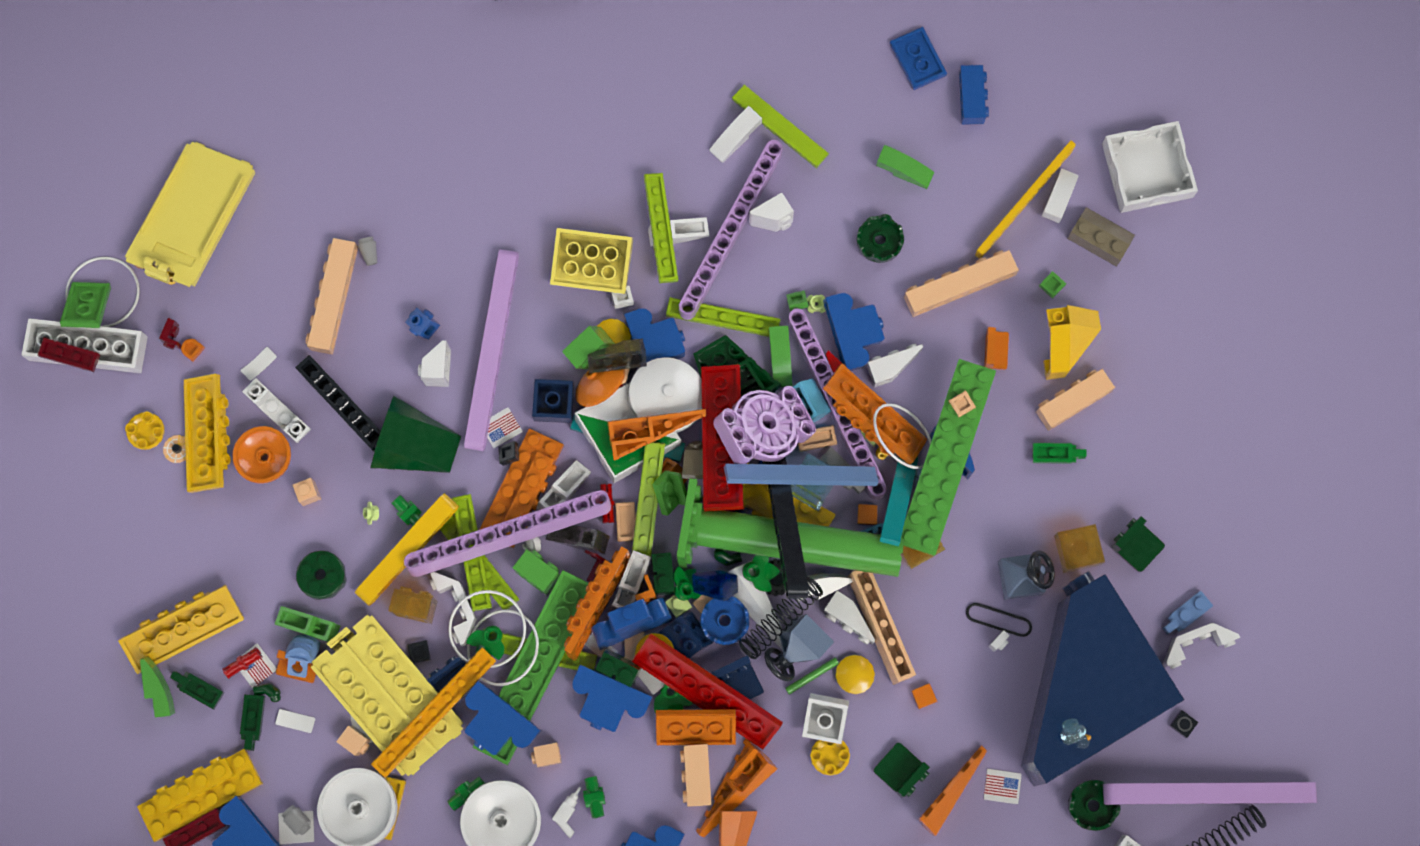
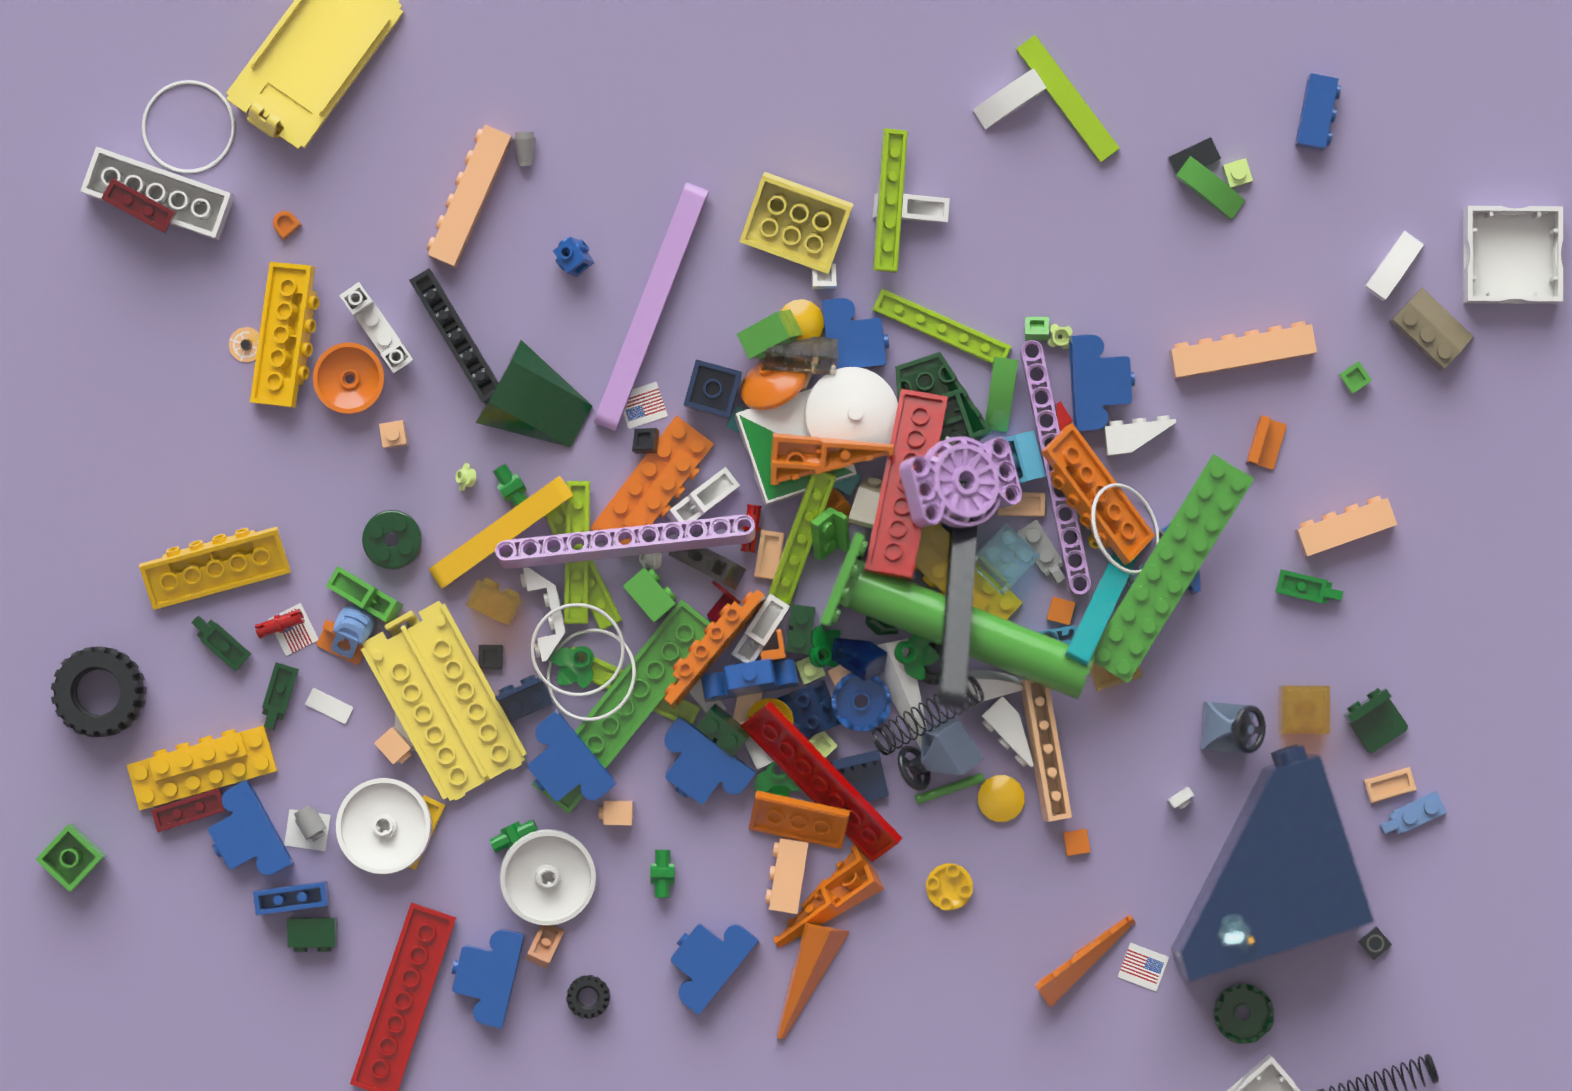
camera: 15 degrees right, 10 degrees up
(79, 739) = (66, 696): none -> black tyre
(85, 305) = (167, 142): bright green tile -> none
(145, 430) = (212, 314): yellow dish -> none
(156, 688) = (174, 633): bright green slope -> none
(169, 332) = (263, 197): dark red bracket -> none
(257, 365) = (364, 260): white sticker -> none
(268, 689) = (305, 662): dark green arm -> none
(433, 712) = (495, 734): light orange tile -> none
(436, 366) = (580, 315): white slope -> none
(565, 812) = (625, 883): white piece -> none
(702, 660) = (823, 743): none -> yellowish green plate
(727, 237) = (982, 210): lavender beam -> none
(772, 214) = (1032, 215): white slope -> none
(800, 474) = (990, 552): medium blue tile -> none
(825, 718) = (954, 843): white slope -> none
(880, 226) = (1173, 267): dark green plate -> none
(894, 141) = (1204, 152): none -> black tile
(901, 770) = (1029, 922): dark green bracket -> none
(918, 58) = (1261, 47): blue tile -> none
(923, 152) = (1237, 173): none -> yellowish green plate
(962, 404) = (1203, 511): light nougat tile -> none
(1002, 612) = (1183, 780): black piece -> none
(1026, 198) = (1349, 262): yellow tile -> none
(1070, 335) = (1355, 453): yellow panel -> none
(1162, 594) = (1389, 785): none -> light nougat tile
(1209, 793) = (1382, 1030): lavender beam -> none
(1221, 636) = (1385, 860): white slope -> none

